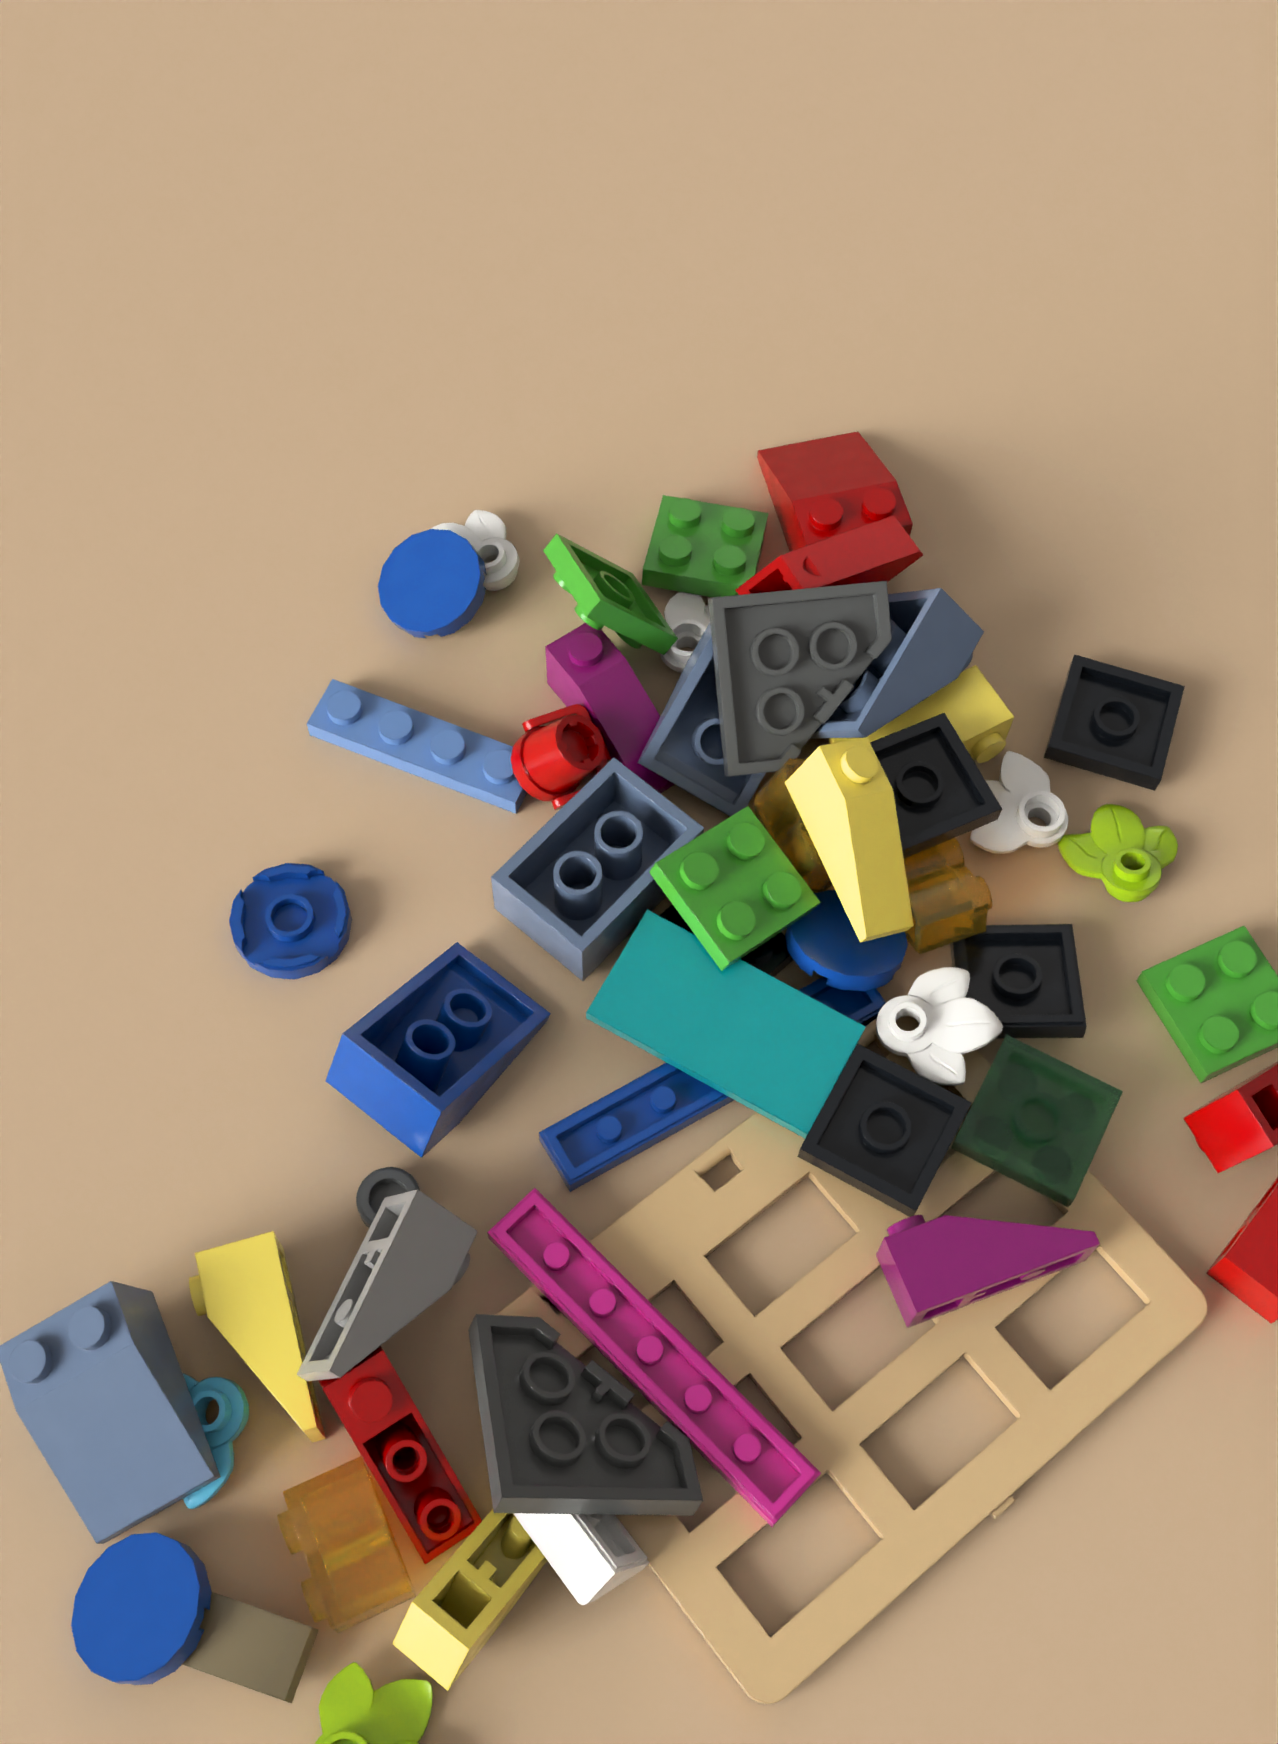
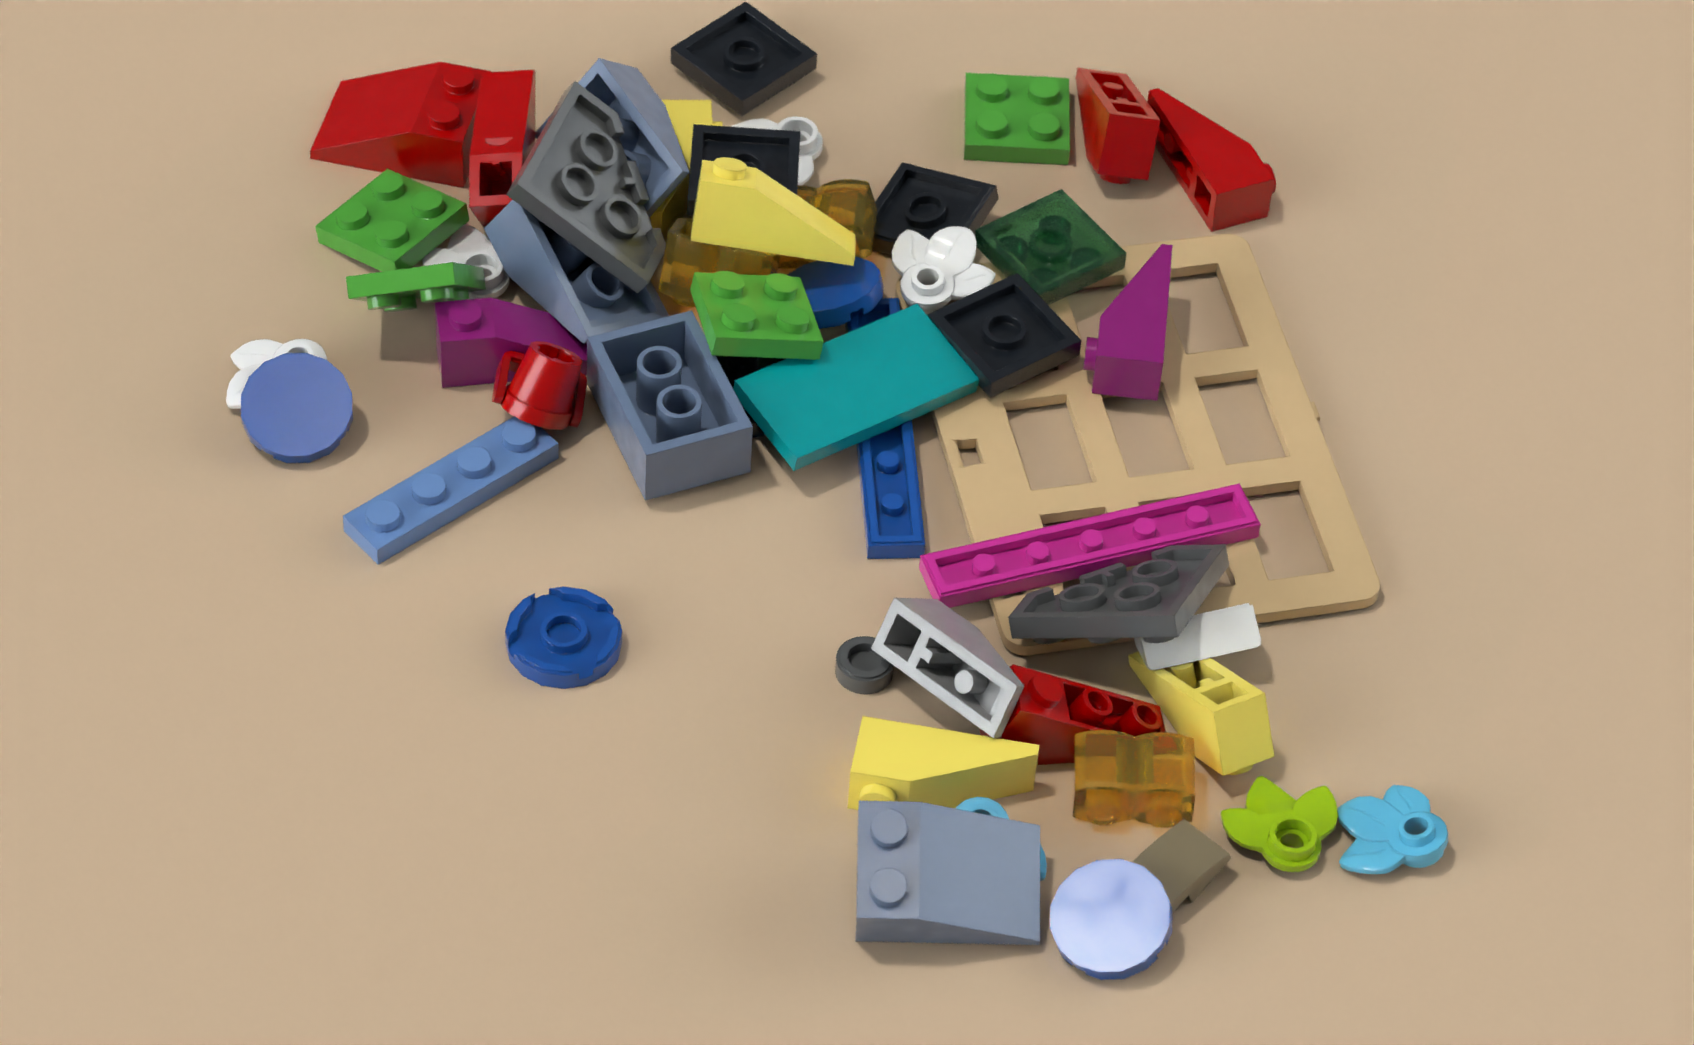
camera: 65 degrees left, 15 degrees down
(434, 1047) = (758, 578): blue slope -> none
(1121, 852) = (858, 111): lime plate -> none

